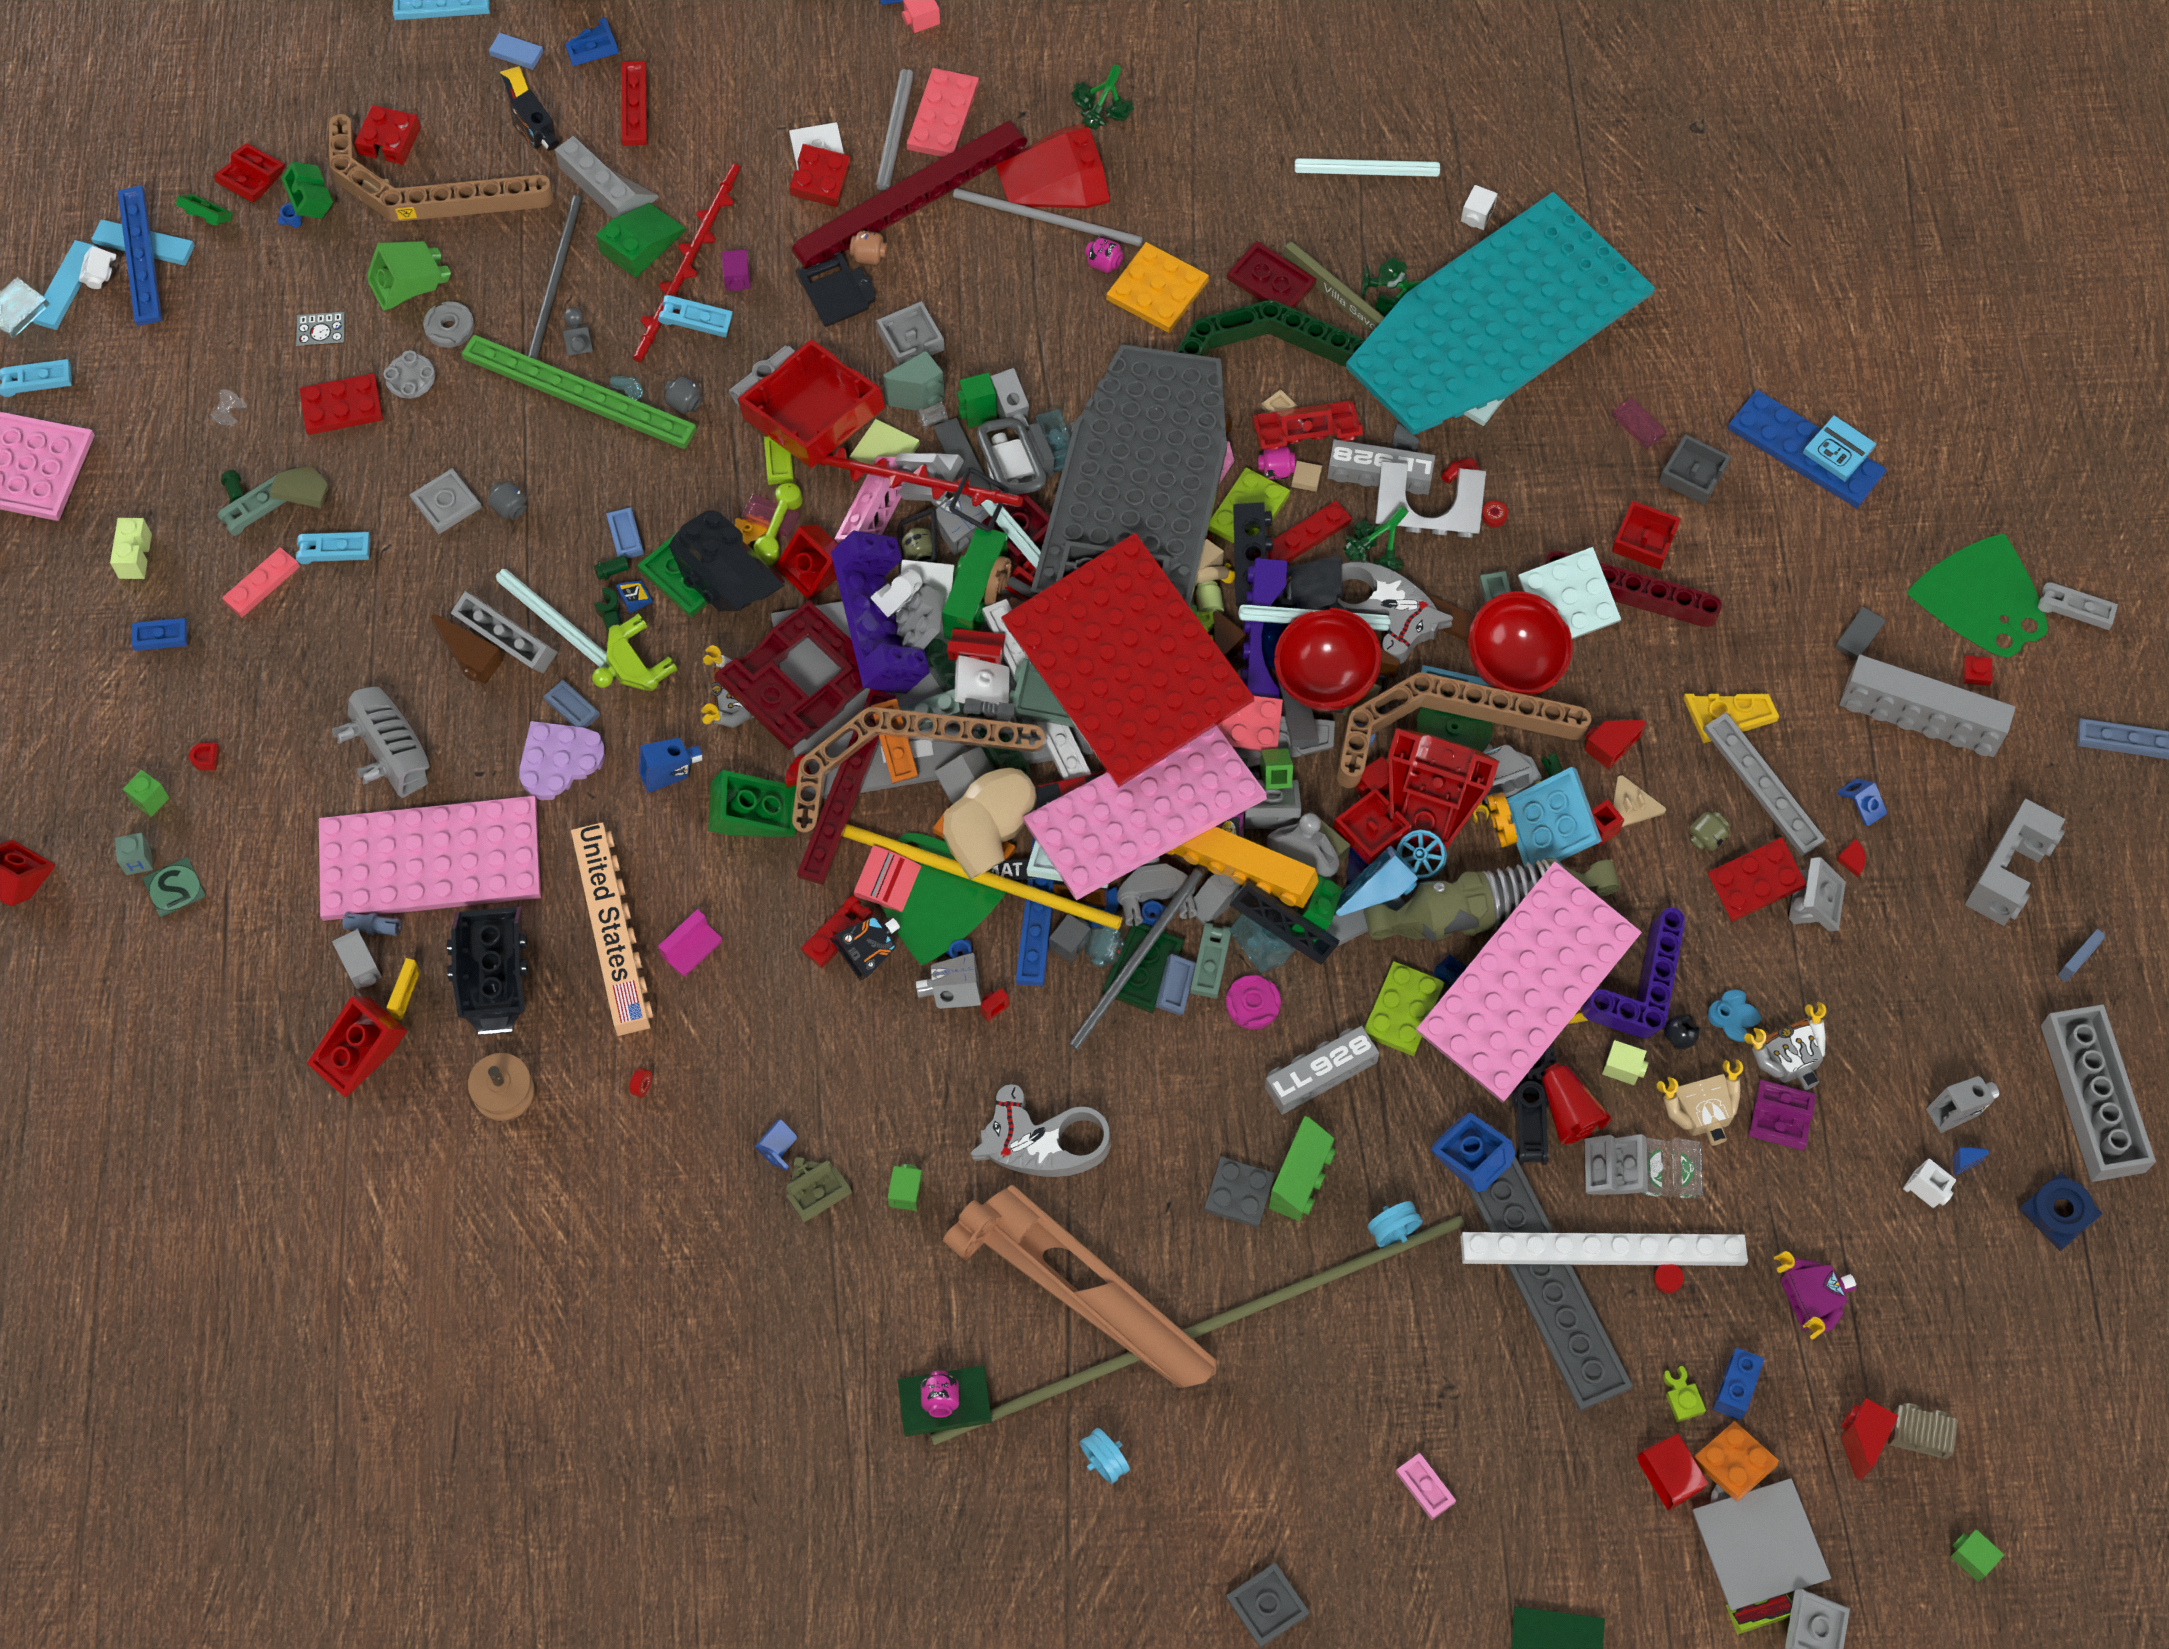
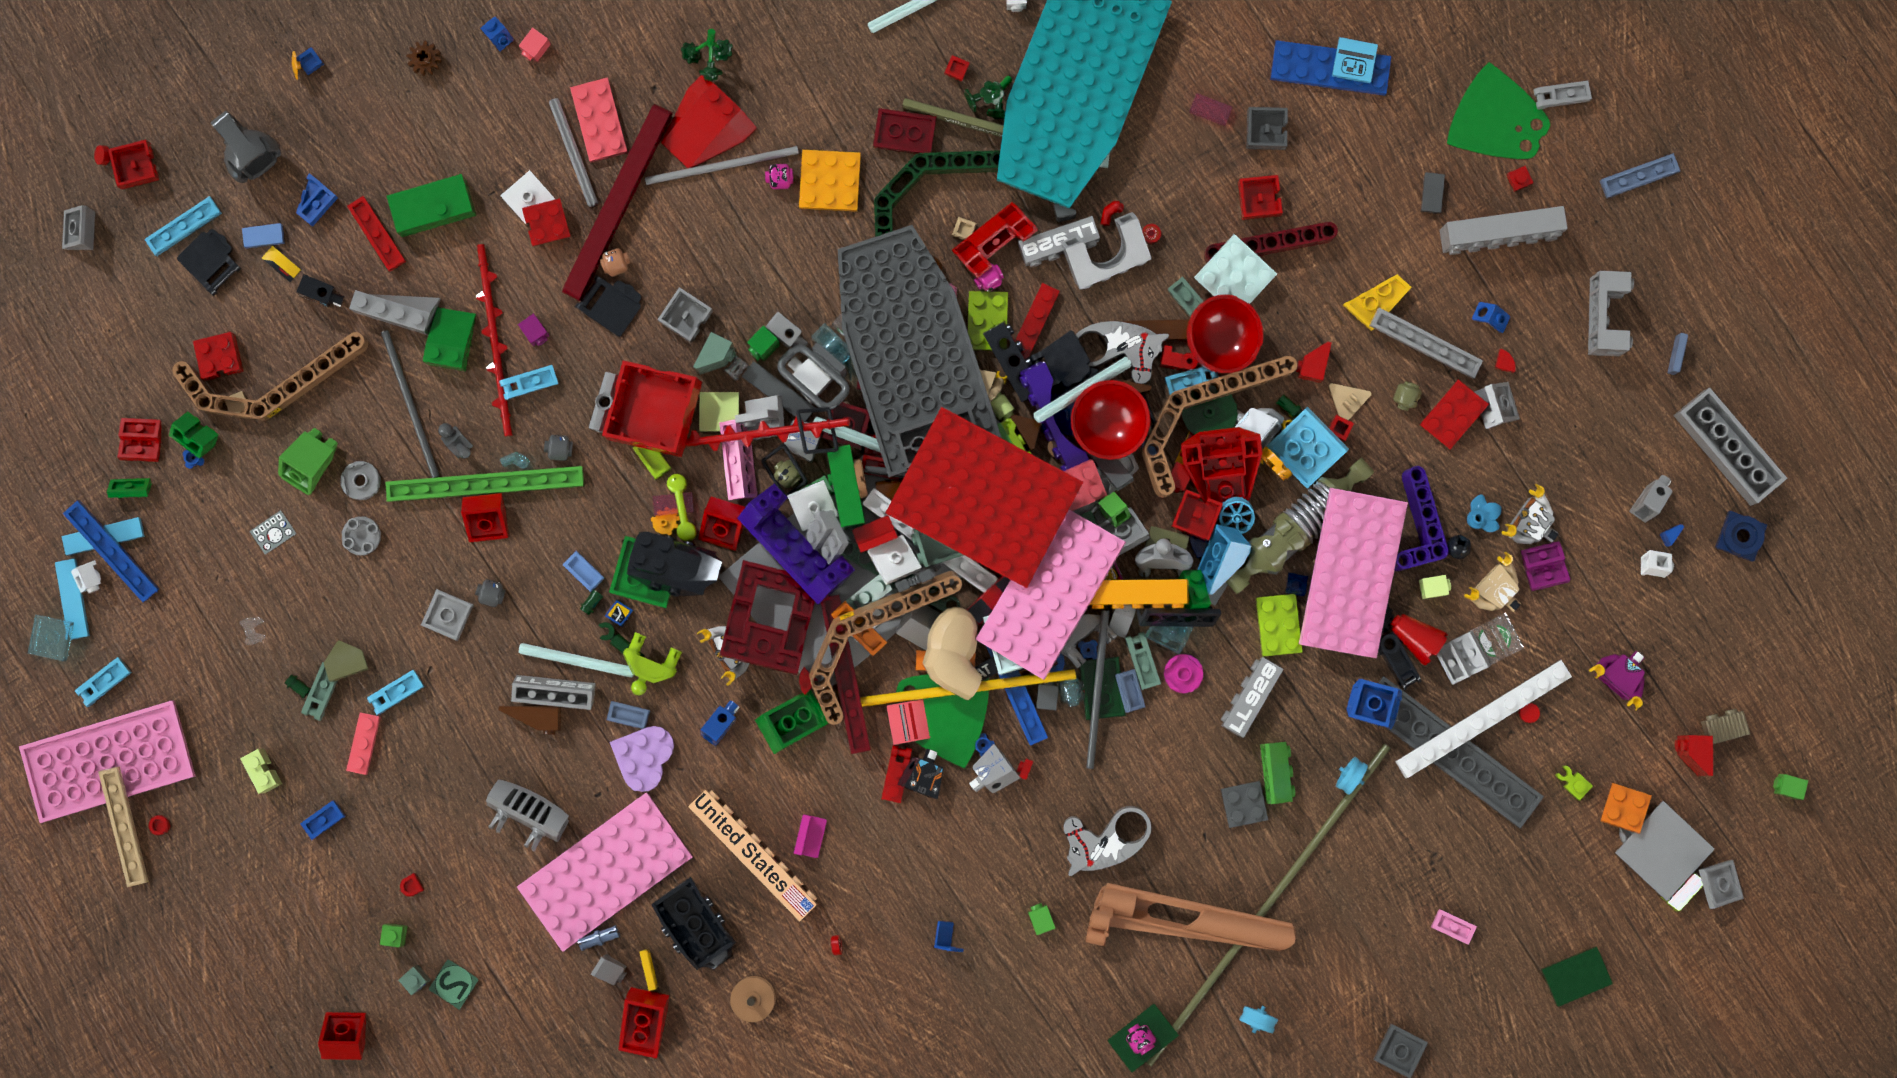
camera: 30 degrees left, 20 degrees up
(341, 404) = (327, 582): red plate -> none
(445, 42) = (206, 257): none -> black piece
(554, 423) = (484, 517): none -> red slope
(709, 103) = (431, 205): none -> green brick
(815, 1187) = (984, 949): olive slope -> none
(893, 597) = (800, 526): white leg -> none
(1306, 476) = (1012, 274): tan tile -> none
(1366, 536) = (1077, 300): dark green plant -> none
(1369, 246) = (957, 68): none -> red plate
(1446, 655) = (1177, 361): none -> red leg
(1672, 1471) = (1592, 836): red piece -> none
(1738, 1384) = (1604, 759): blue brick -> none

